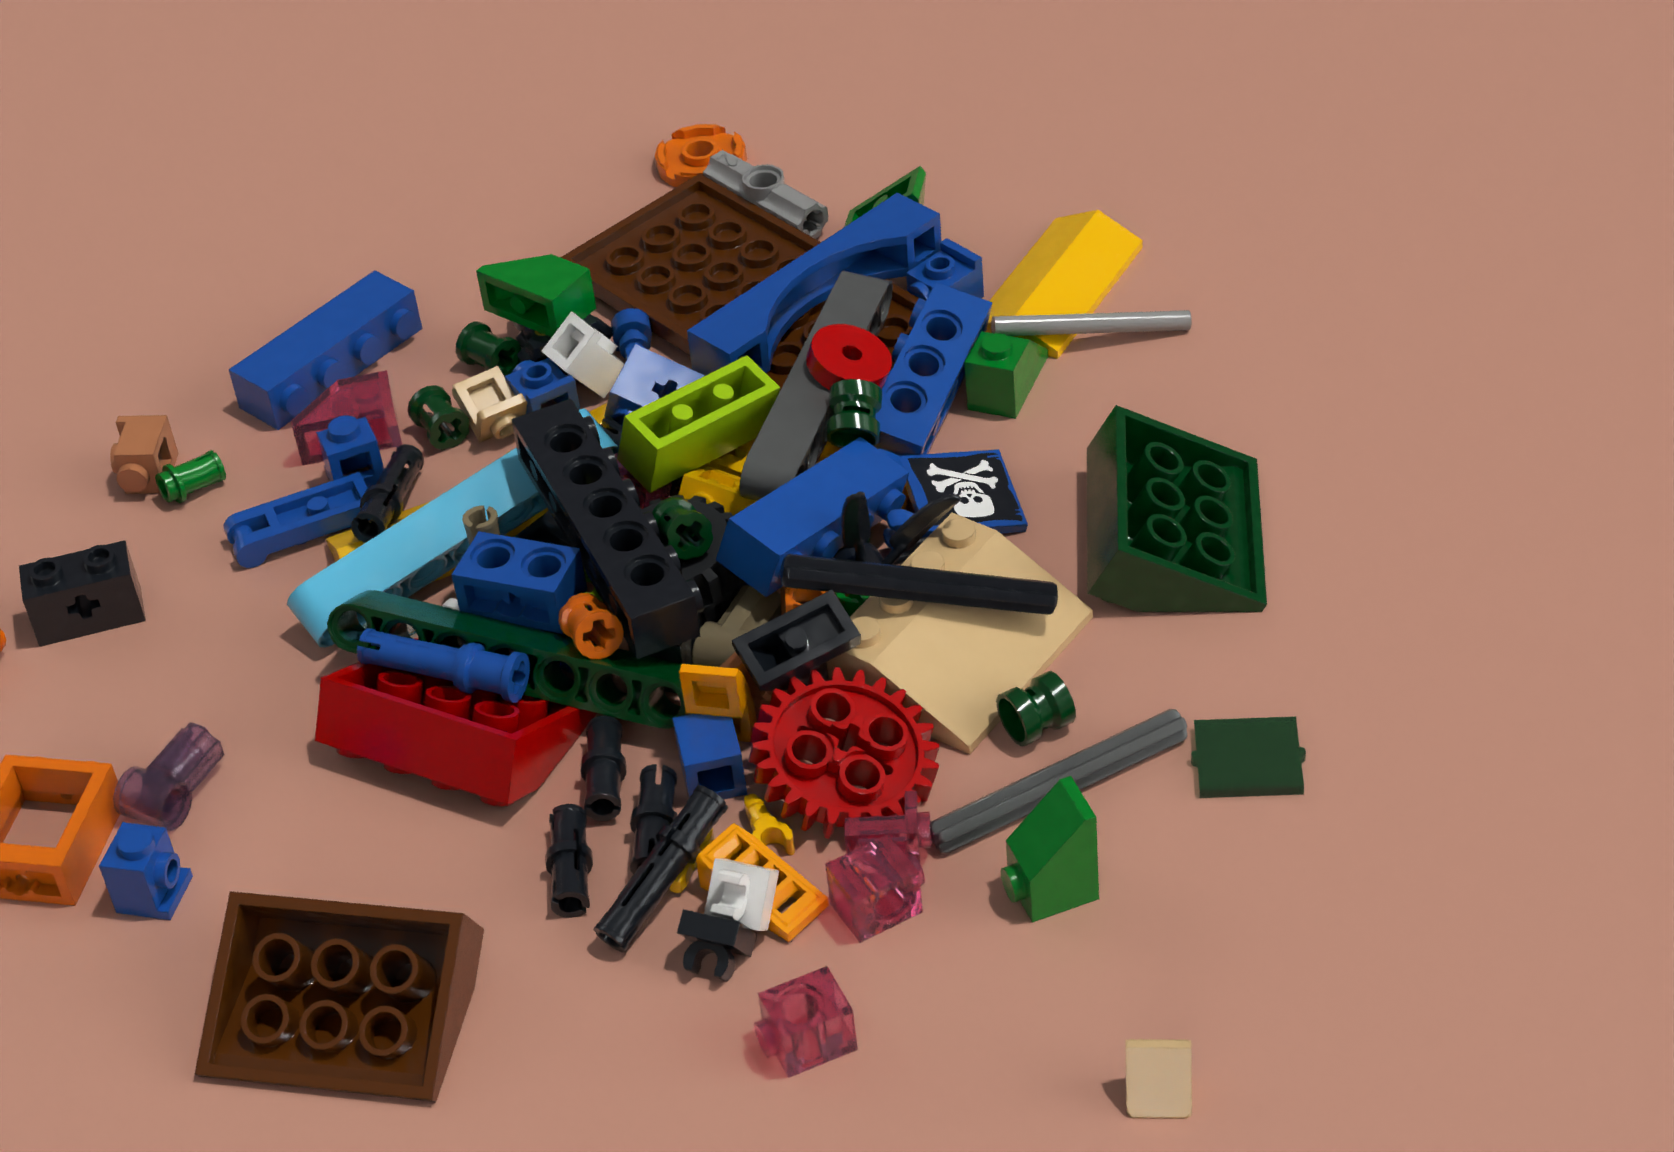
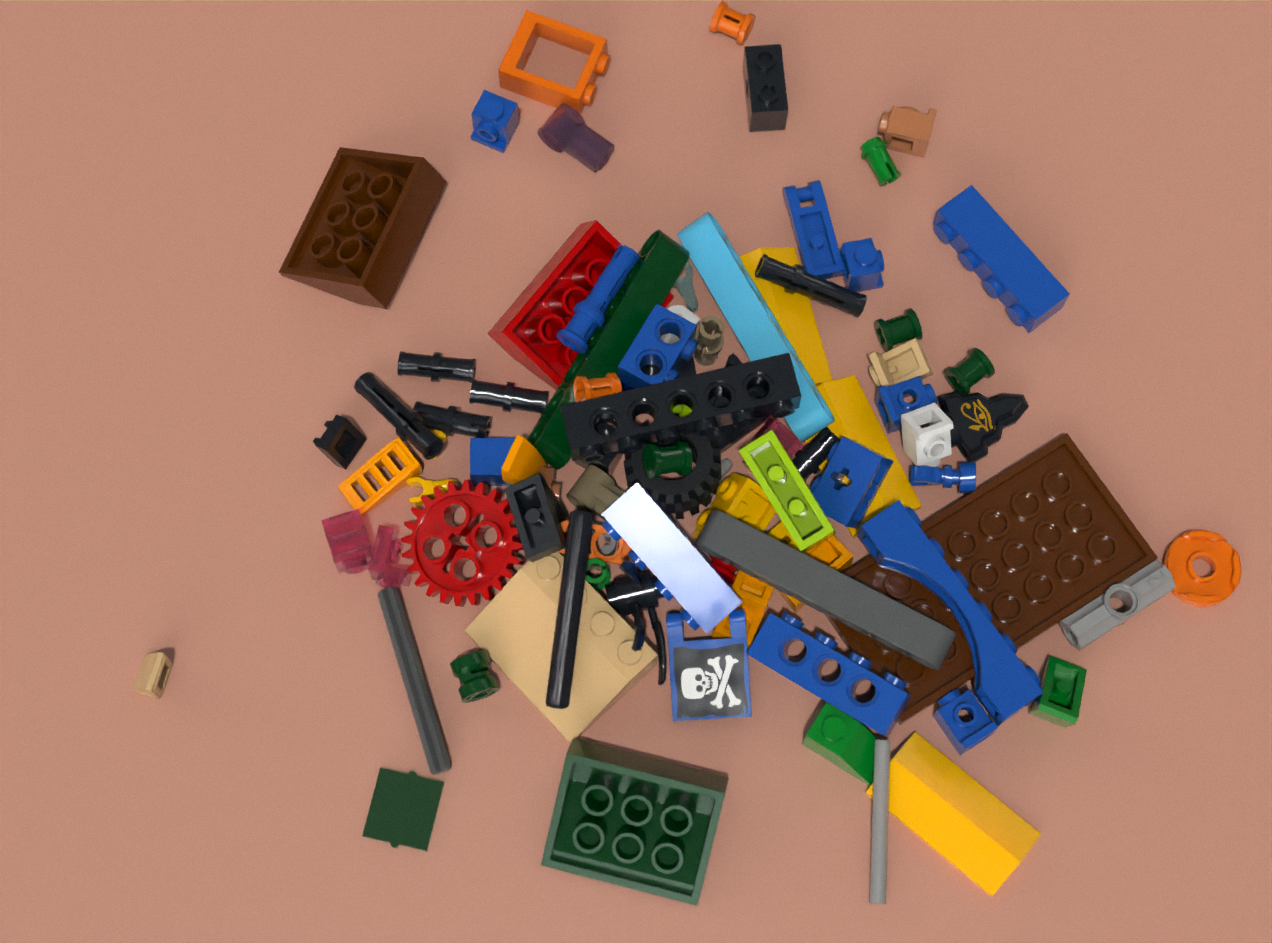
camera: 95 degrees right, 30 degrees up
(354, 396) = (912, 271): clear pink slope -> none
(537, 291) = (991, 407): green slope -> none
(742, 893) = (359, 456): white tile -> none
(806, 1022) = (259, 496): clear pink brick -> none
(847, 353) = (817, 625): red piece -> none
(854, 413) = (764, 601): dark green wheel -> none
(1054, 854) = (328, 650): green slope -> none

